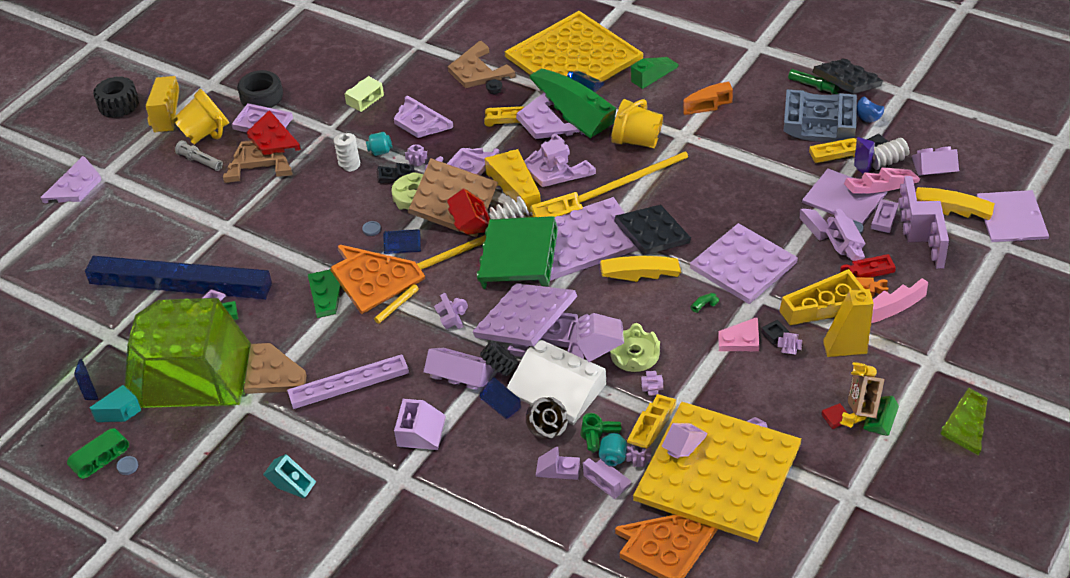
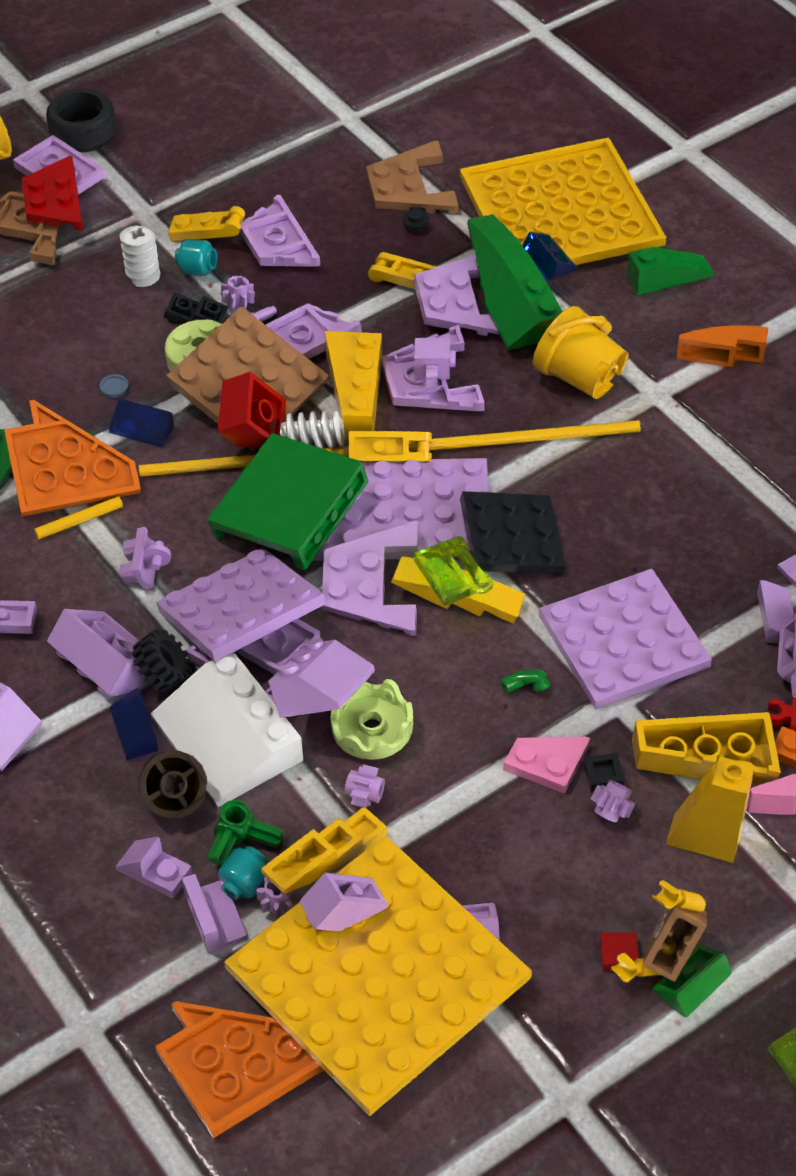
camera: 20 degrees right, 5 degrees up
(364, 94) = (221, 172): yellowish green brick -> none
(374, 124) = (206, 225): none -> yellow plate
(580, 276) = (356, 578): none -> lavender wing
(635, 257) = (445, 574): none -> clear neon green plate

